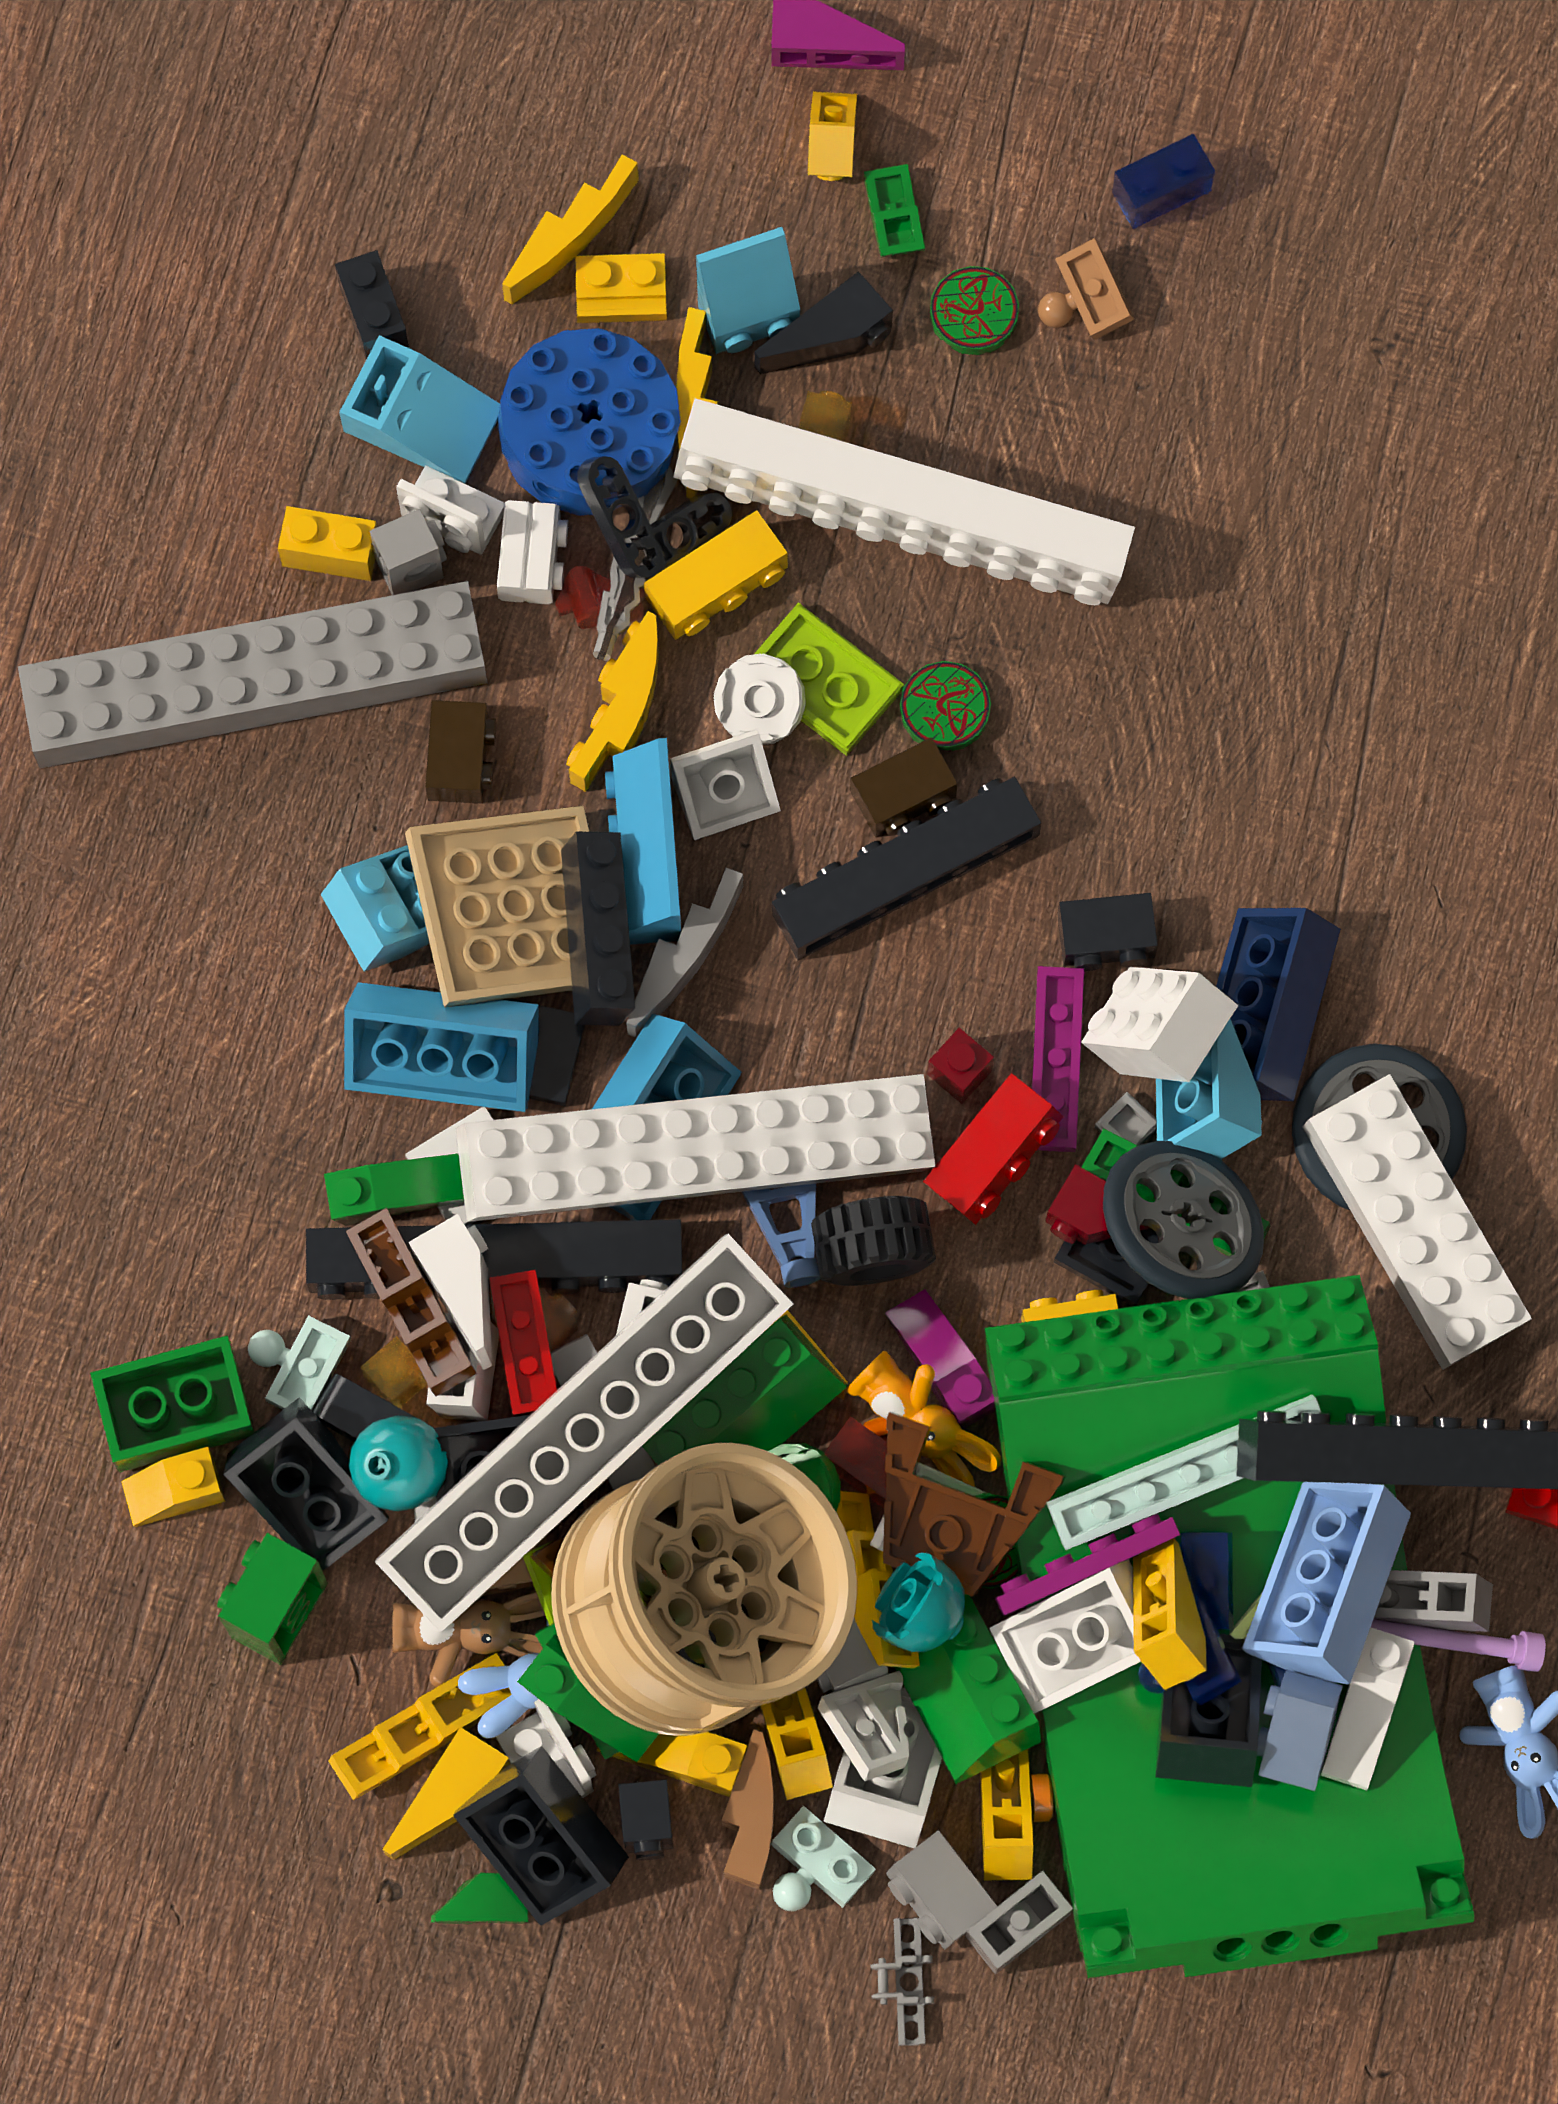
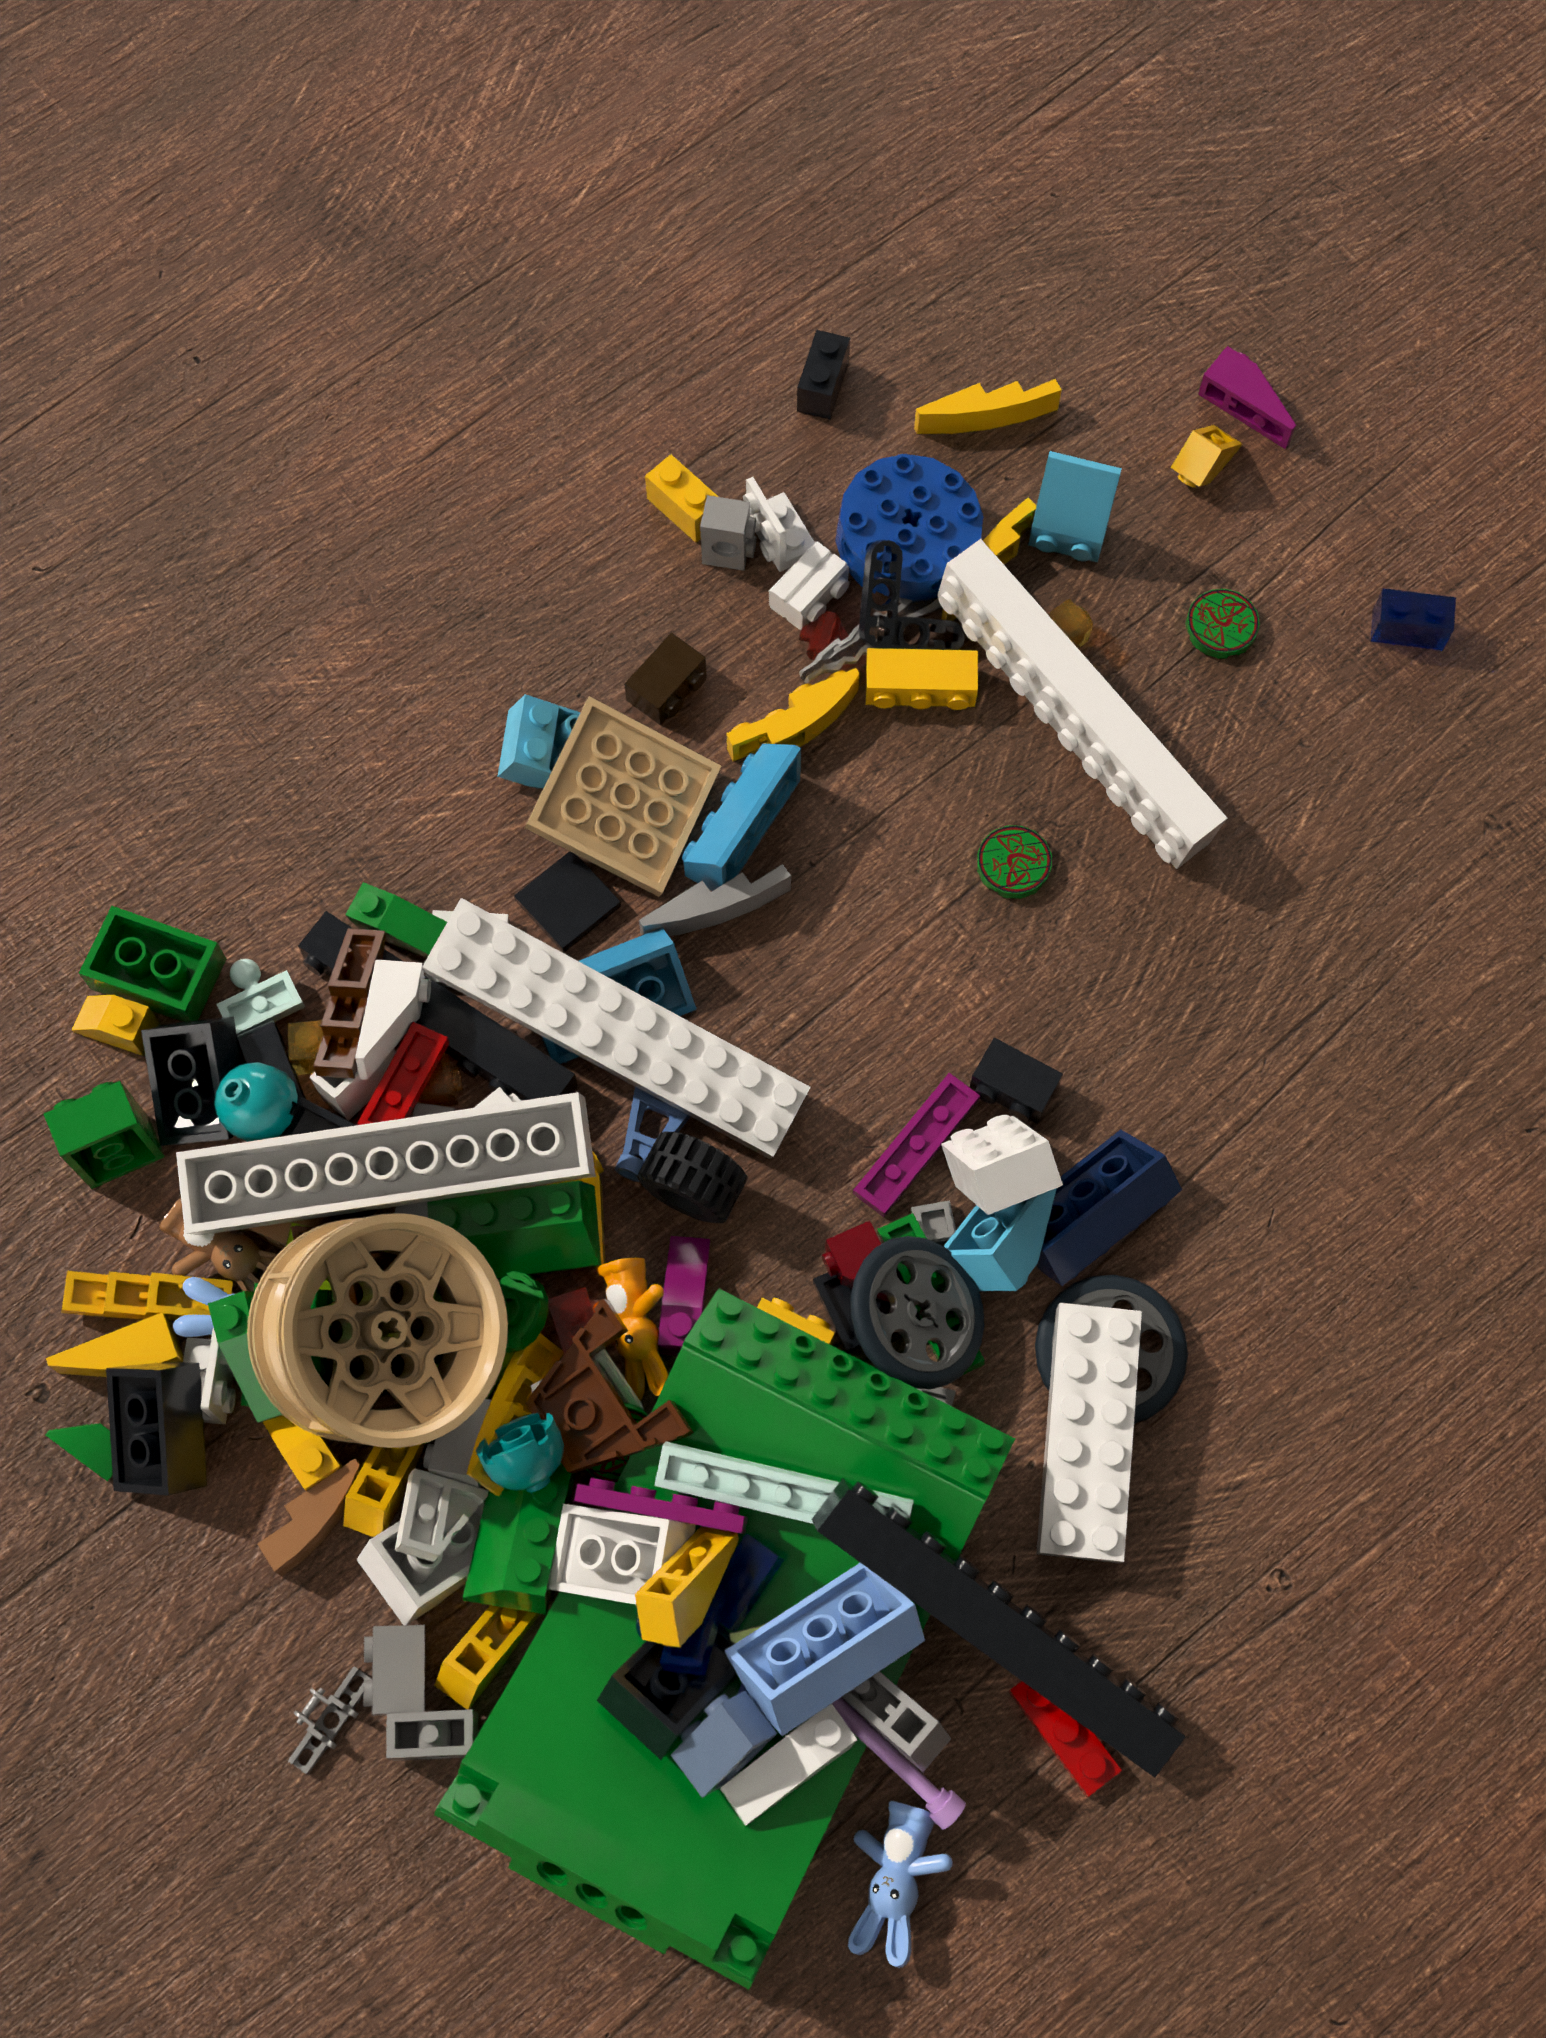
camera: 35 degrees right, 5 degrees down
(252, 674) = (573, 547): light grey brick -> none
(419, 411) = (802, 452): medium azure slope -> none
(456, 1054) = (511, 865): dark azure slope -> none
(597, 928) = (665, 845): black brick -> none
(621, 288) = (995, 465): yellow plate -> none
(646, 1819) = (233, 1467): black brick -> none
(724, 784) = (825, 812): white slope -> none
(760, 696) = (890, 774): white tile -> none
(820, 1859) = (337, 1587): light aqua plate -> none
(831, 329) = (1117, 573): black slope -> none
(840, 682) = (944, 791): lime tile -> none
(893, 210) = (1213, 528): green slope -> none
(903, 788) = (945, 894): dark brown brick -> none
(905, 867) = (907, 946): black brick -> none
(960, 1065) = (845, 1102): dark red brick -> none
(994, 1149) = (824, 1174): red brick -> none
(1041, 1797) = (516, 1654): orange tile -> none
(1091, 291) = (1312, 660): medium nougat plate -> none

